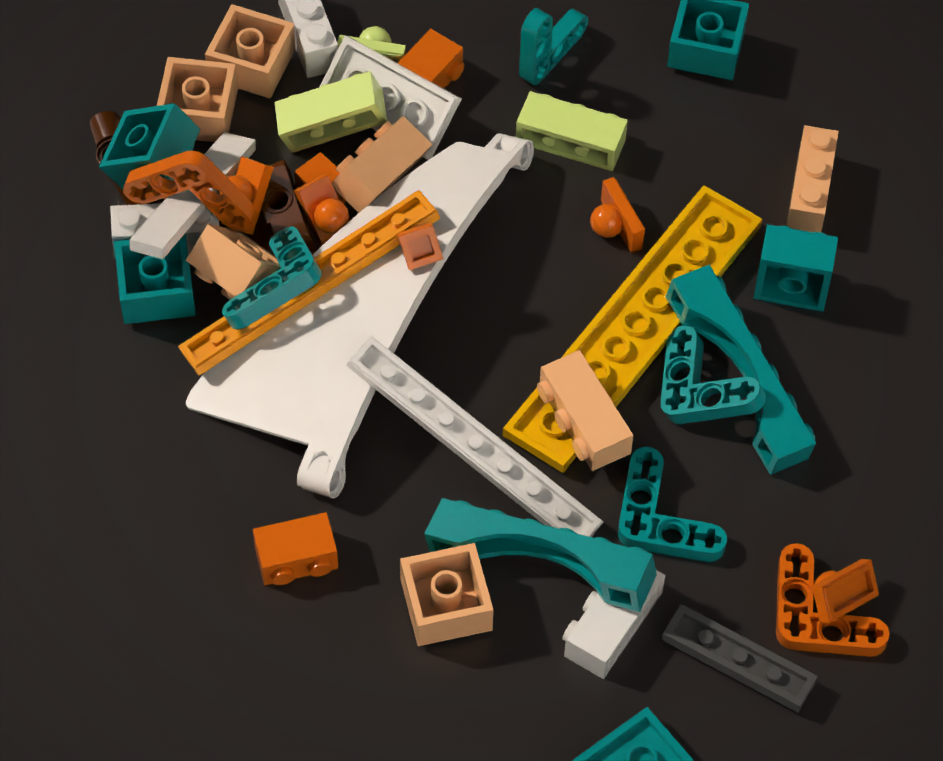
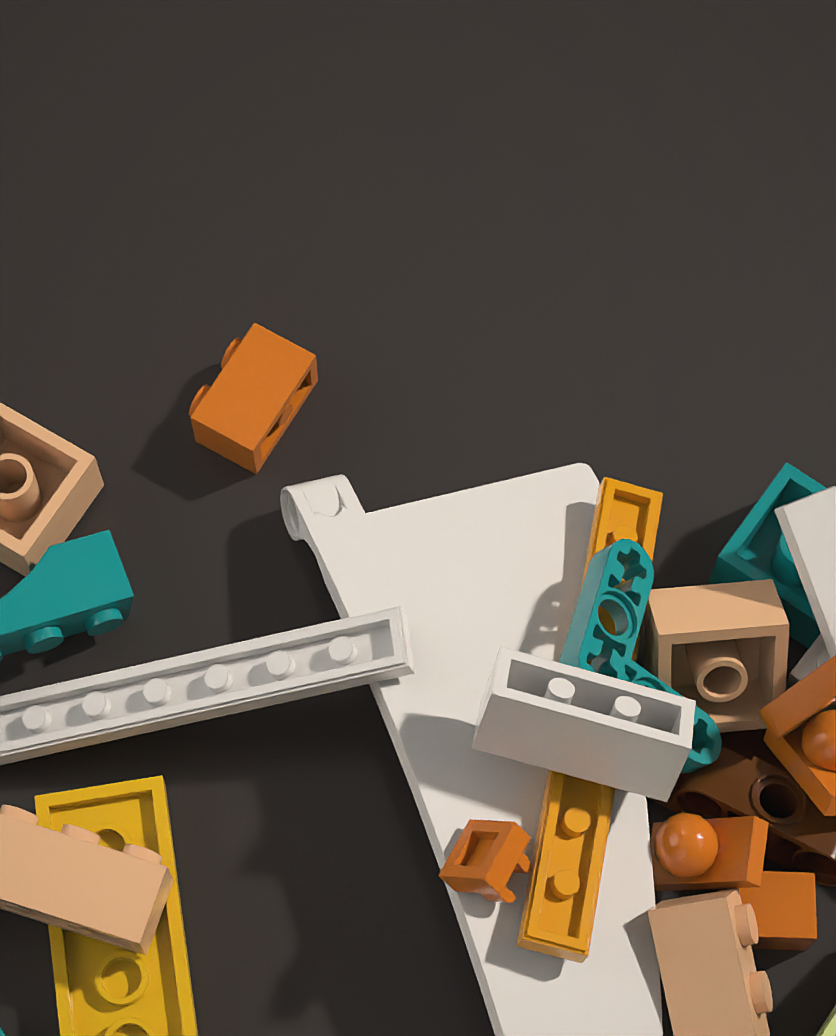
camera: 135 degrees right, 10 degrees up
(331, 250) = (584, 724): none -> white brick

